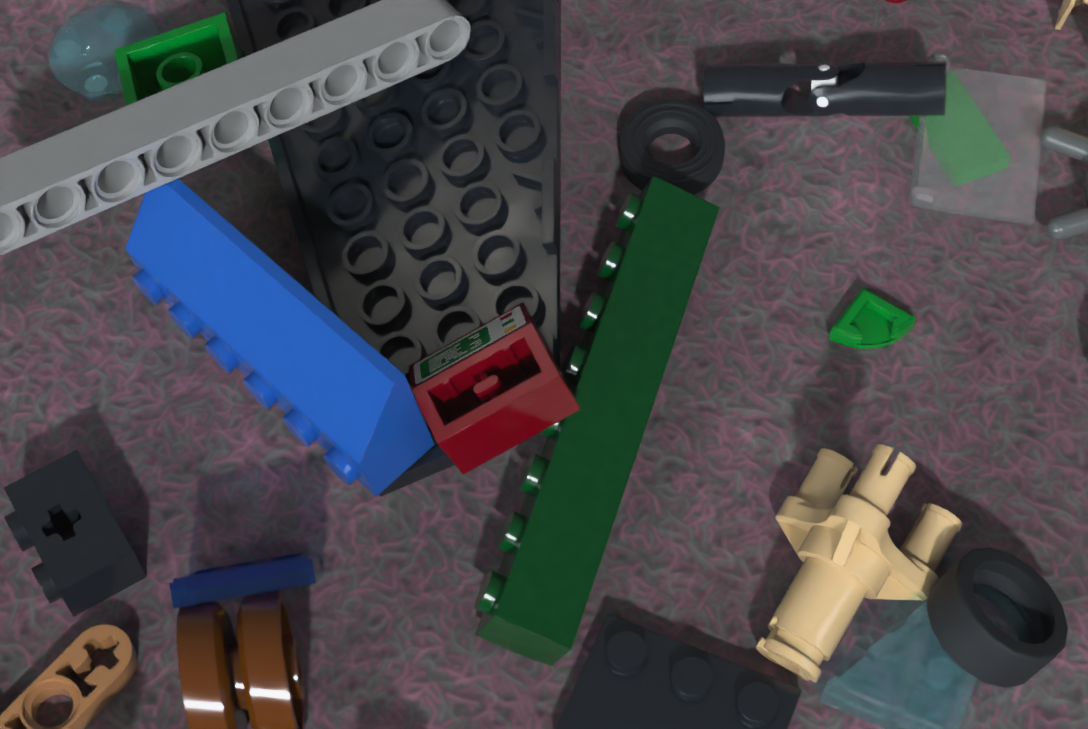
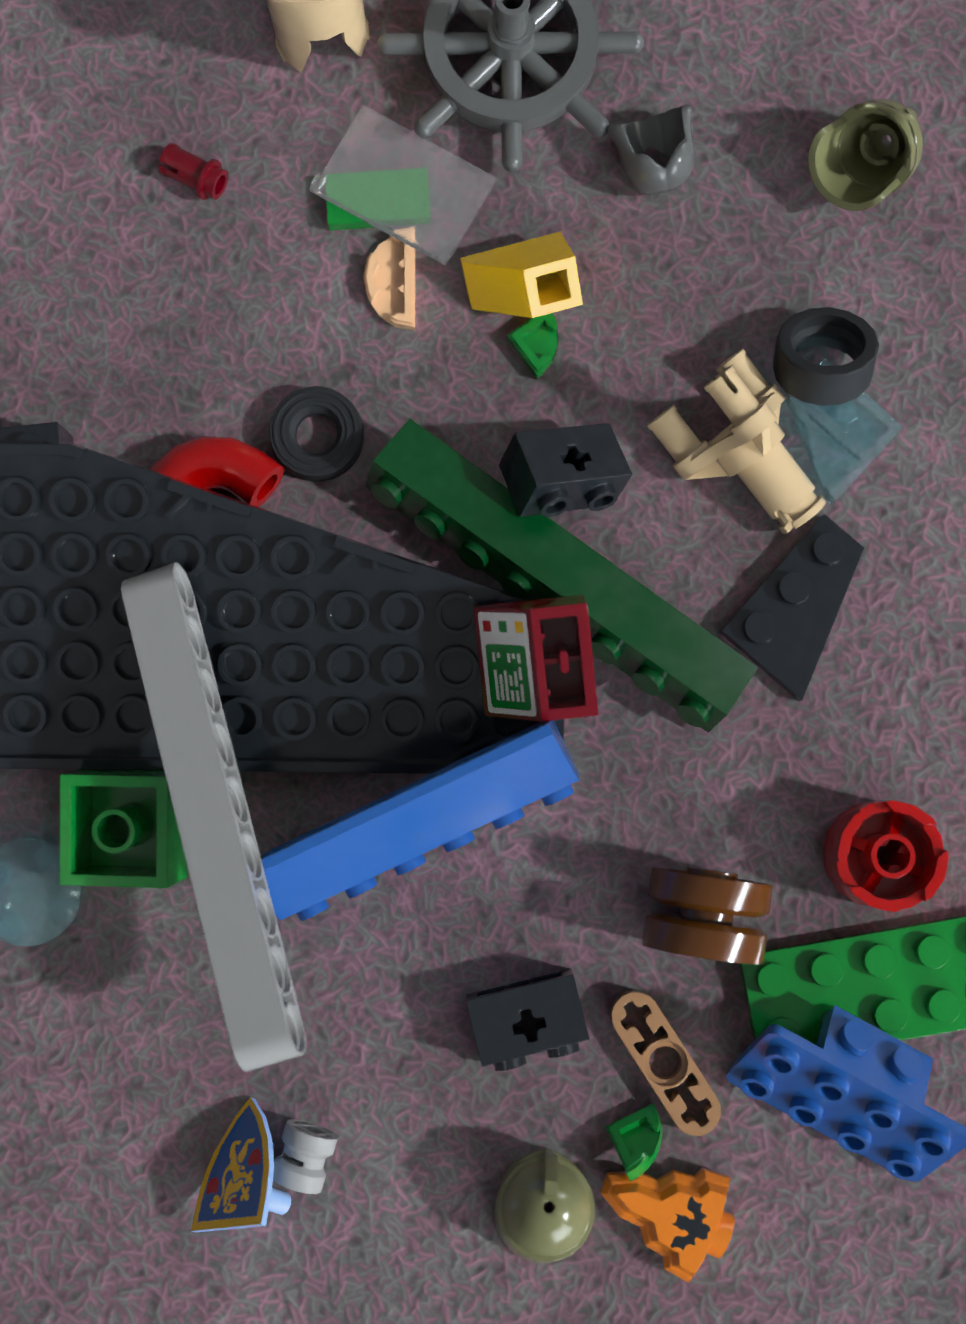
camera: 75 degrees left, 25 degrees up
(246, 578) = (626, 890): clear blue tile -> none
(600, 72) = (223, 465): none -> red cylinder
(726, 368) = (564, 469): none -> black brick
(847, 89) = (312, 296): black piece -> none
(868, 169) = (391, 283): none -> light nougat tile
(935, 278) = (524, 278): none -> yellow slope

